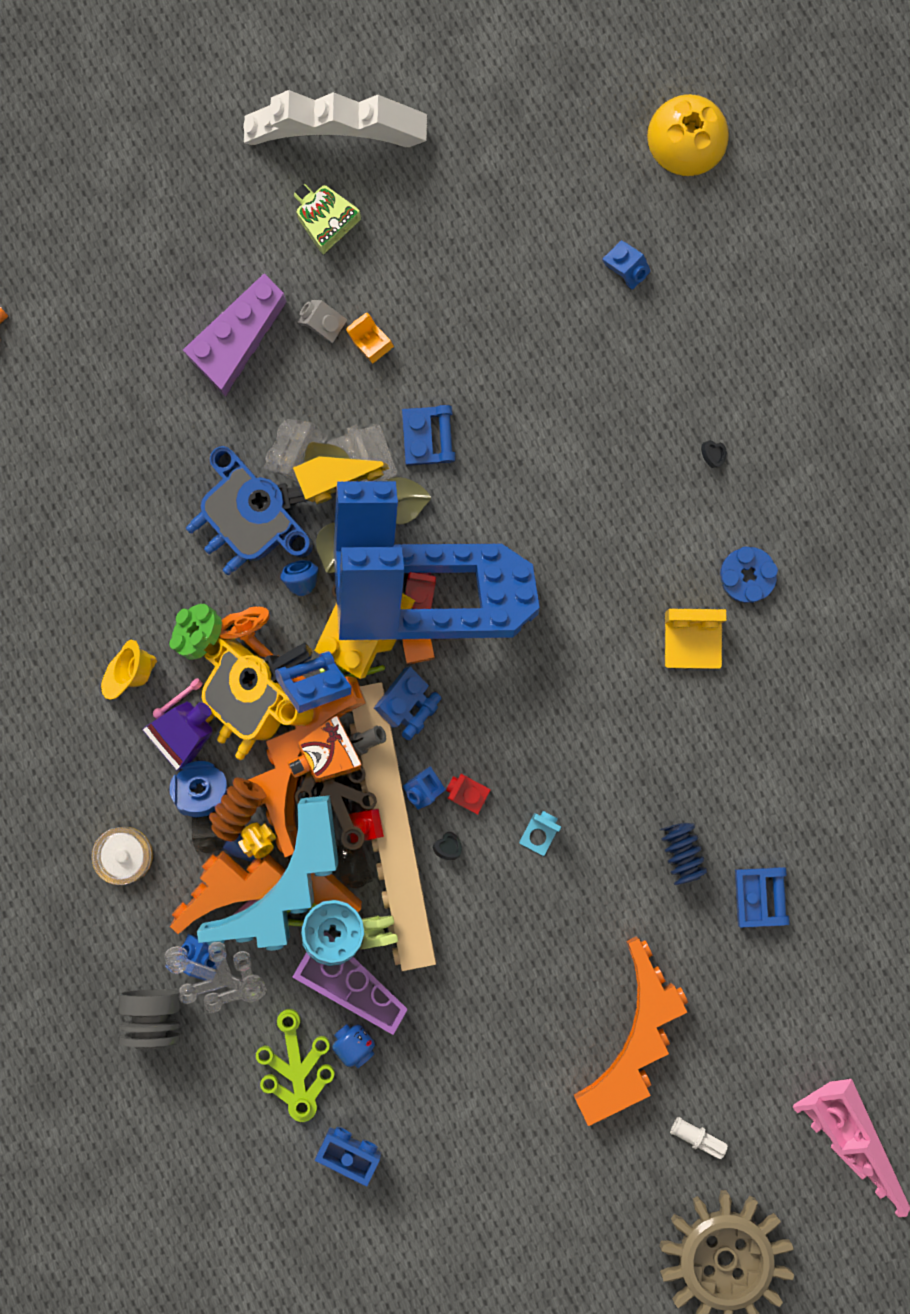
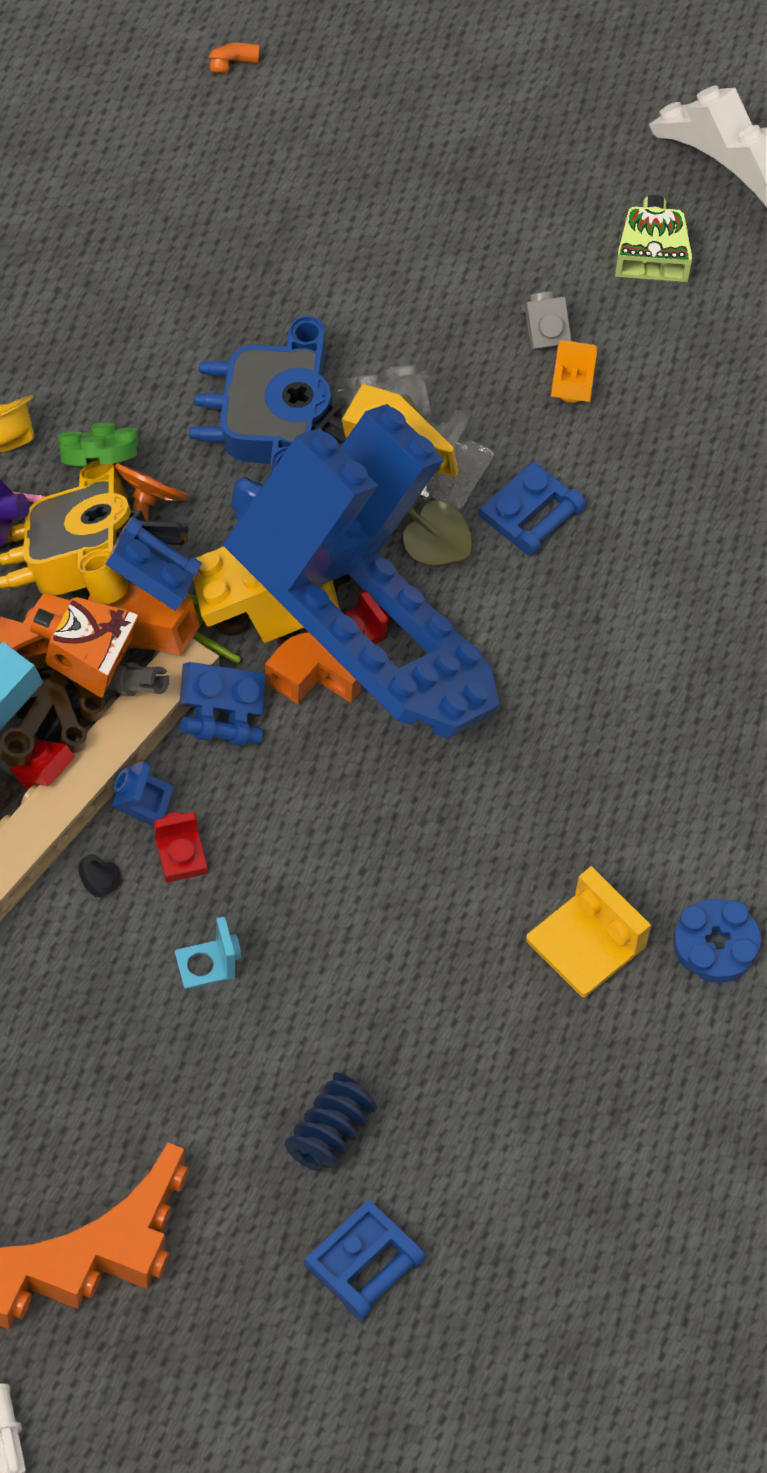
camera: 45 degrees right, 25 degrees down
(236, 333) = (451, 254): medium lavender wedge -> none

